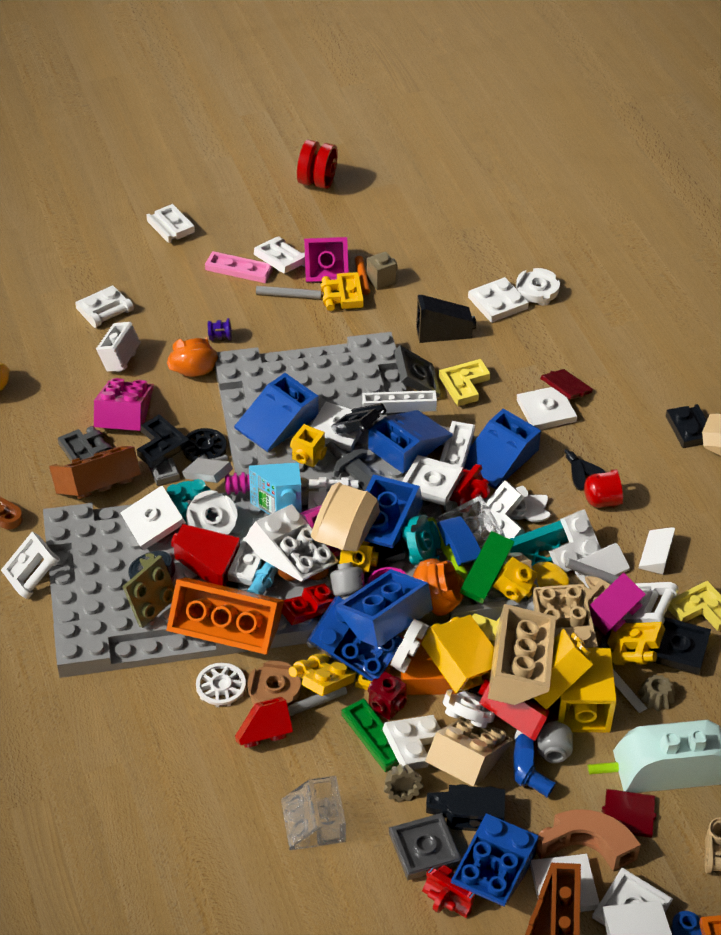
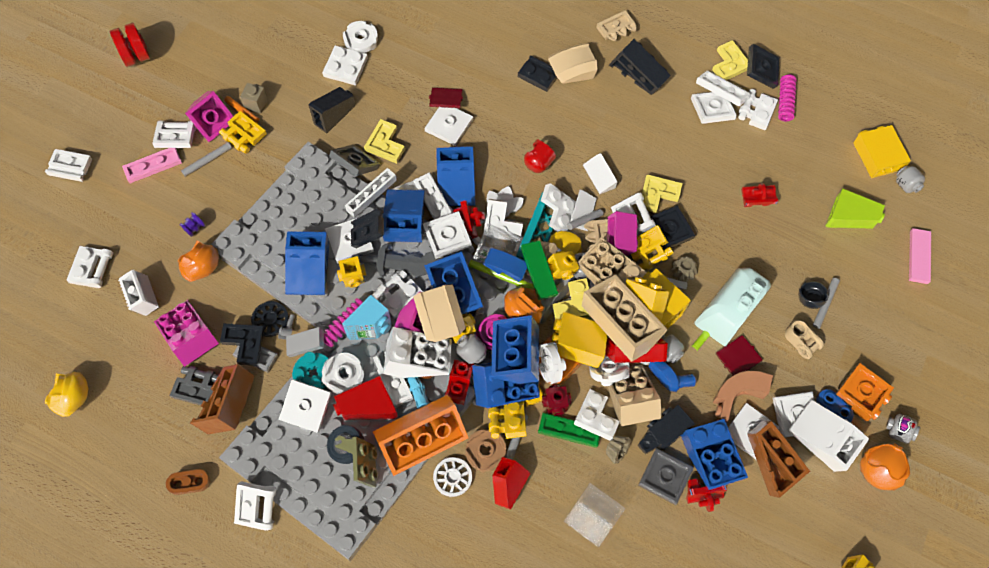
camera: 45 degrees left, 20 degrees up
(421, 539) = (487, 285): teal plate -> none
(580, 468) = (507, 152): black piece -> none

